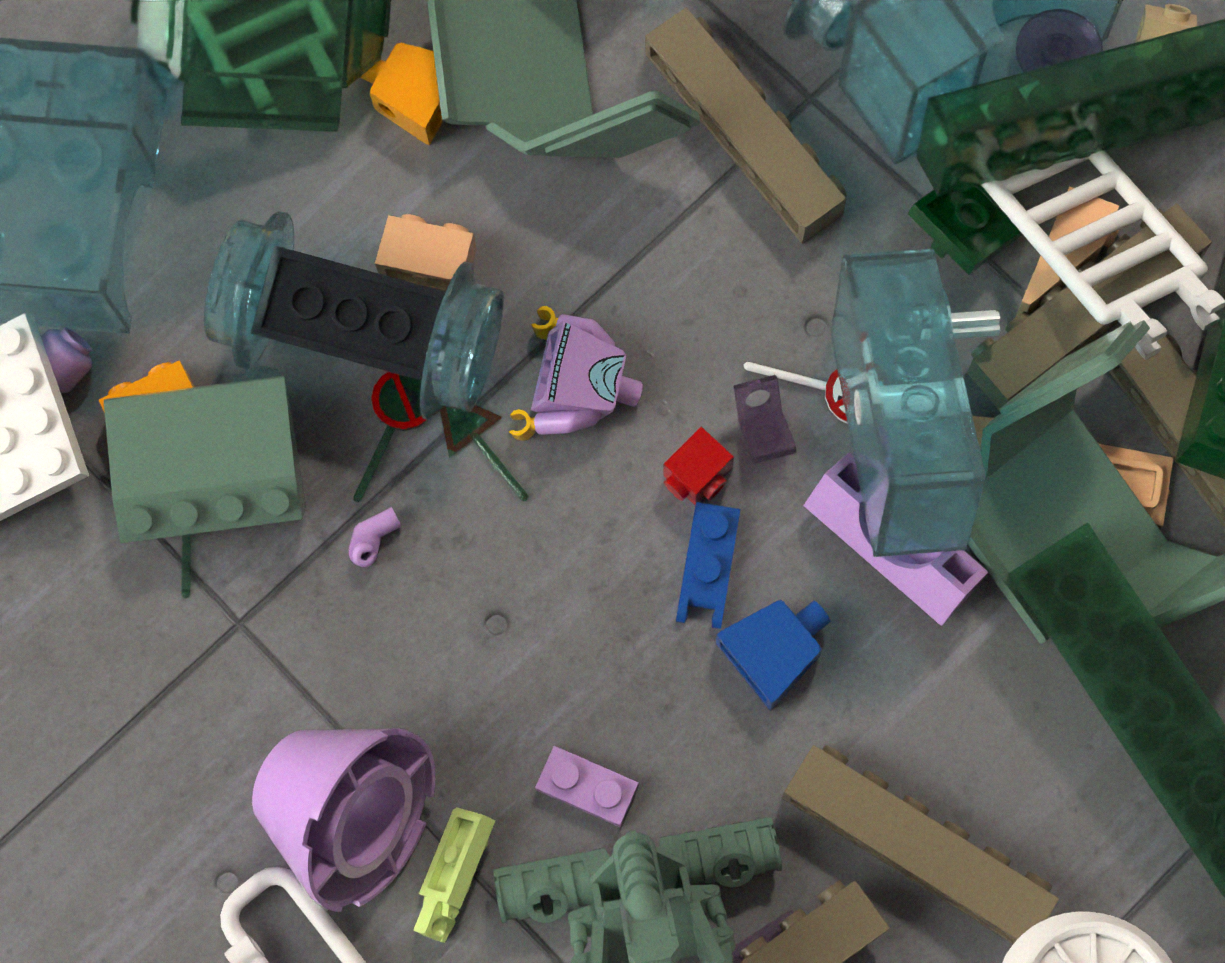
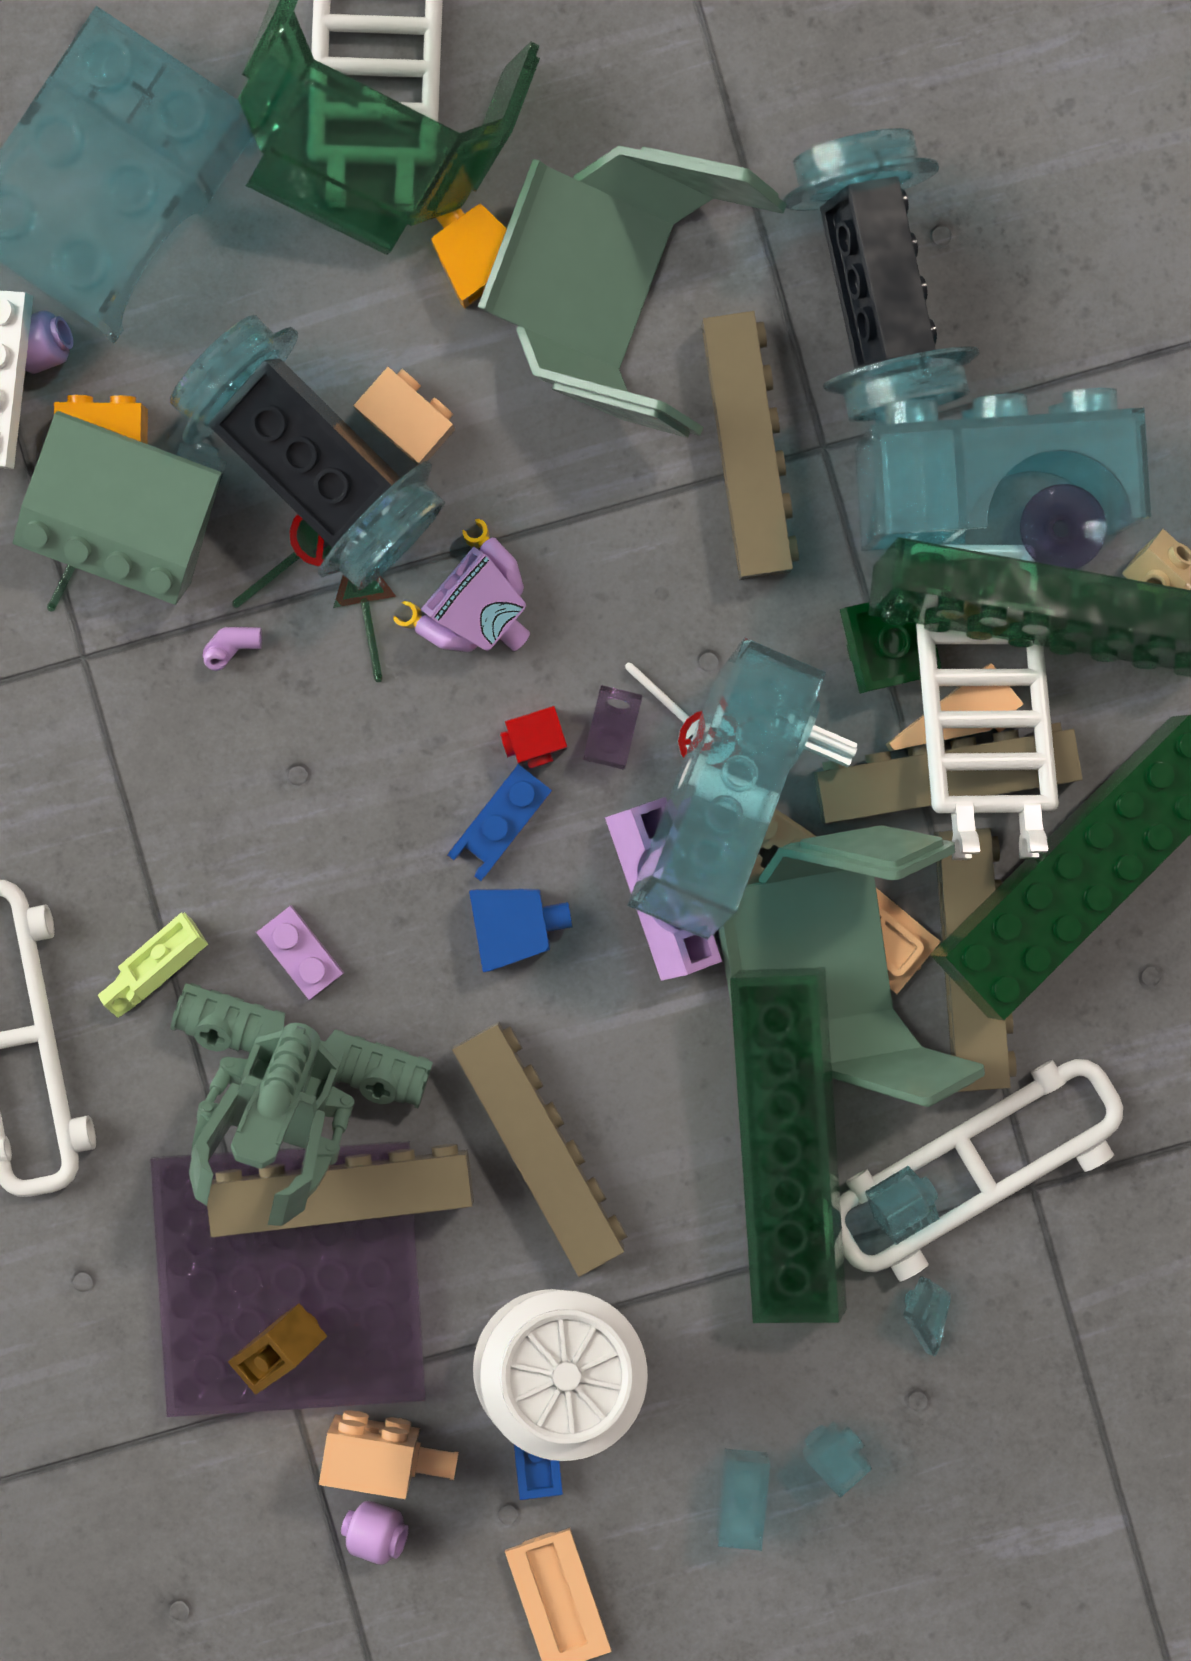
camera: 25 degrees right, 15 degrees up
(345, 808) = (85, 873): lavender cone -> none

